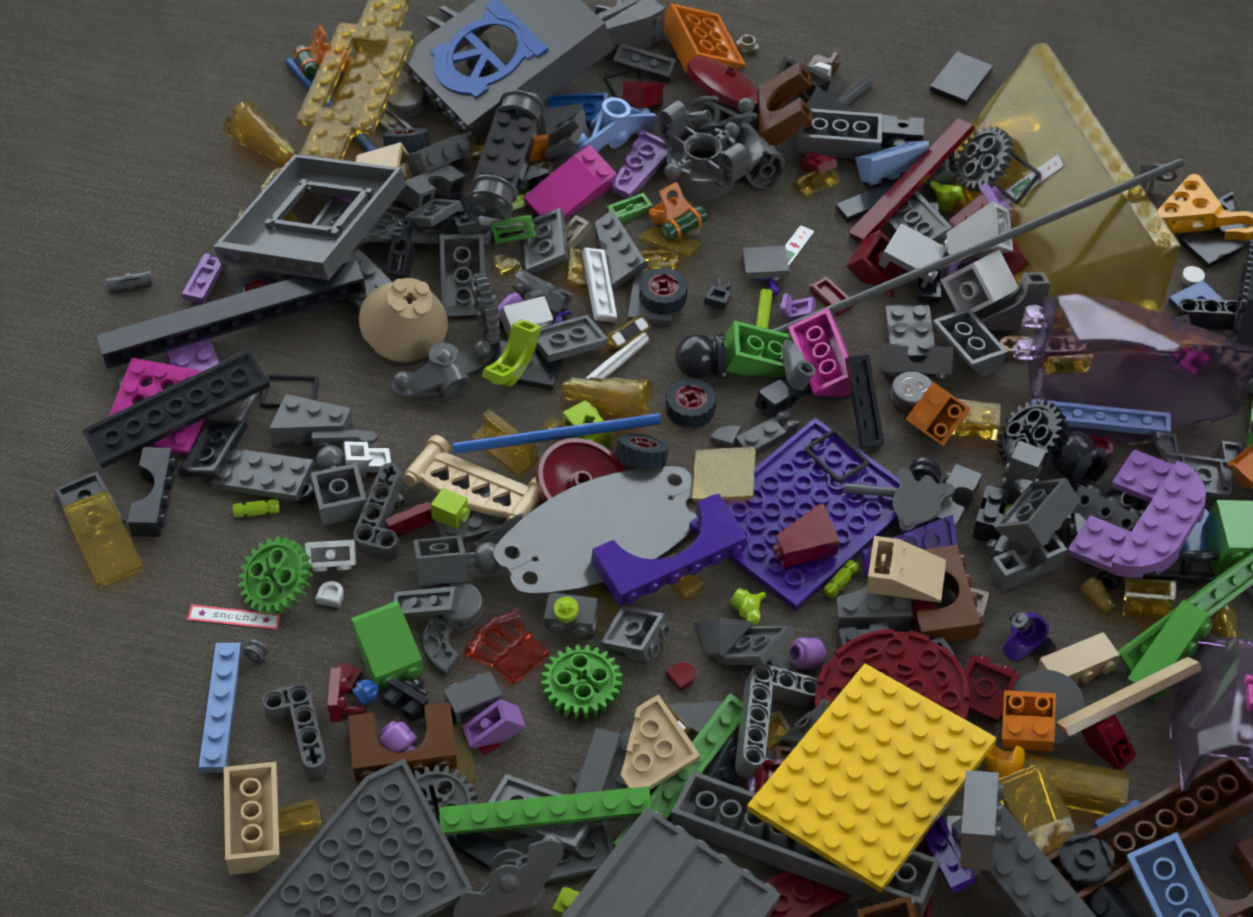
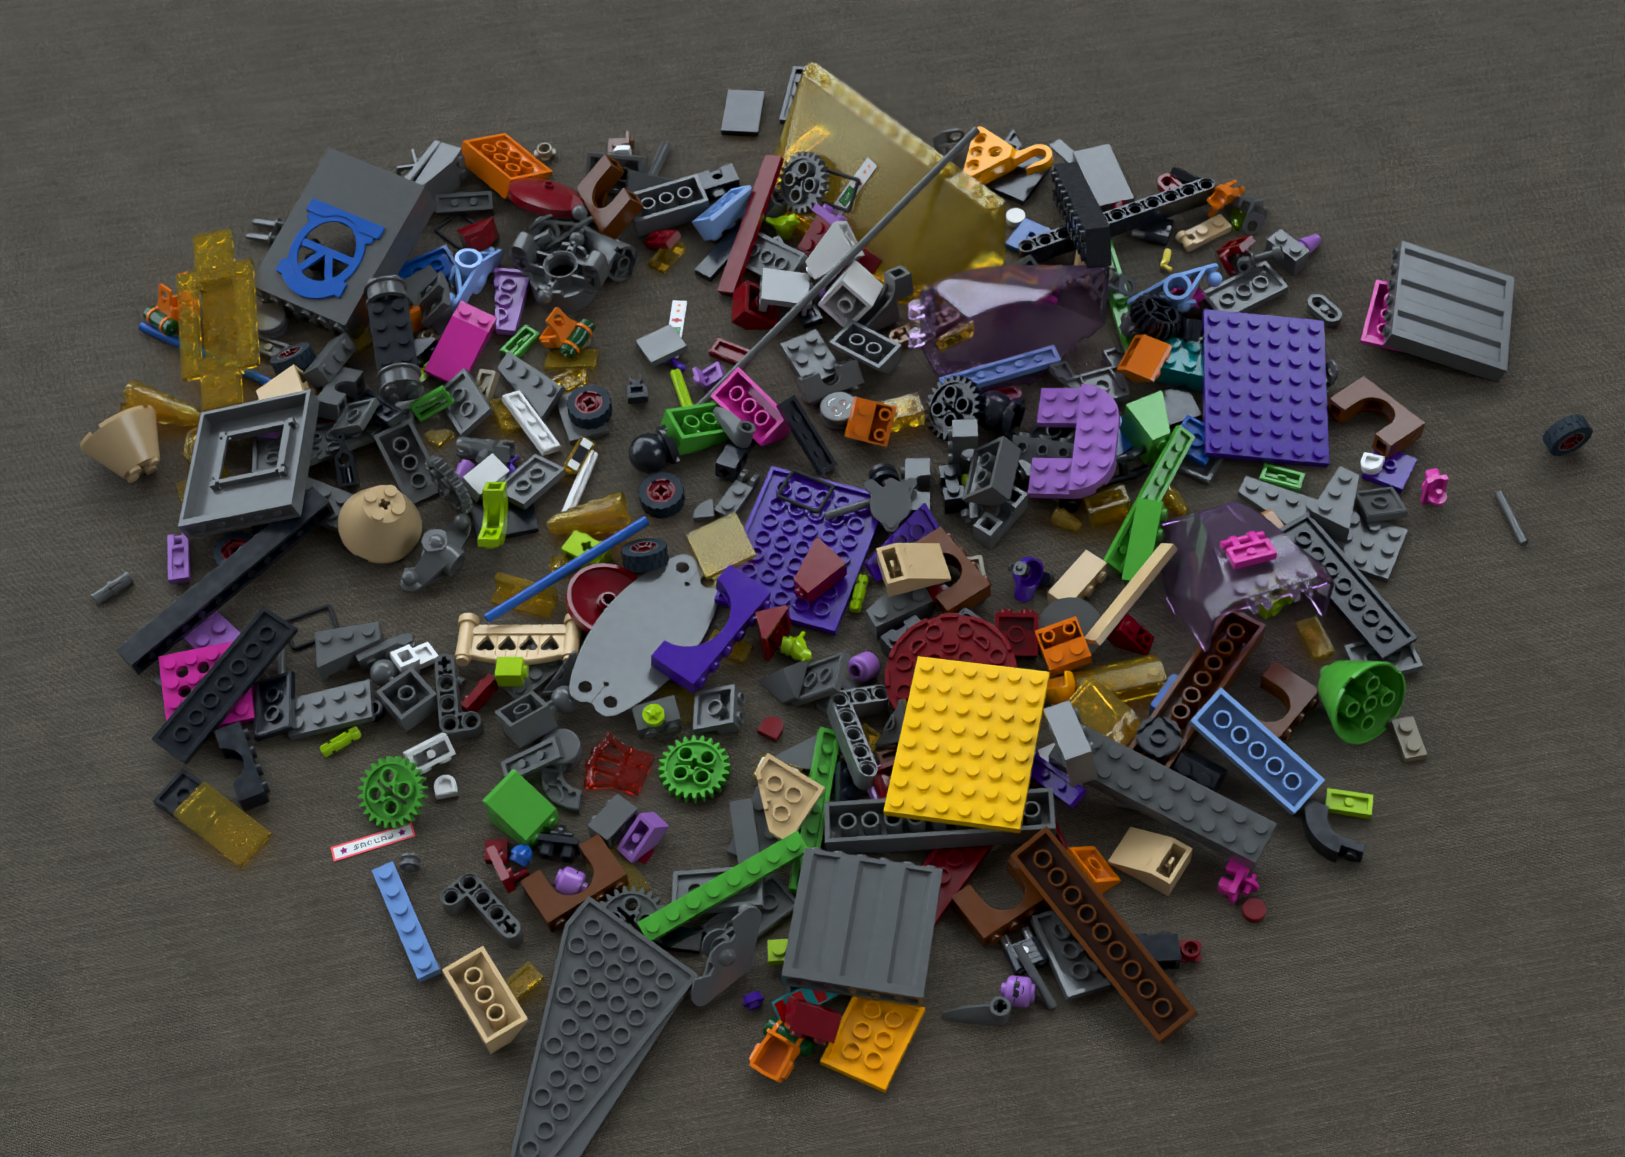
camera: 20 degrees left, 5 degrees up
(211, 153) = (126, 443): none -> tan cone
(731, 573) = (771, 627): none -> dark red slope

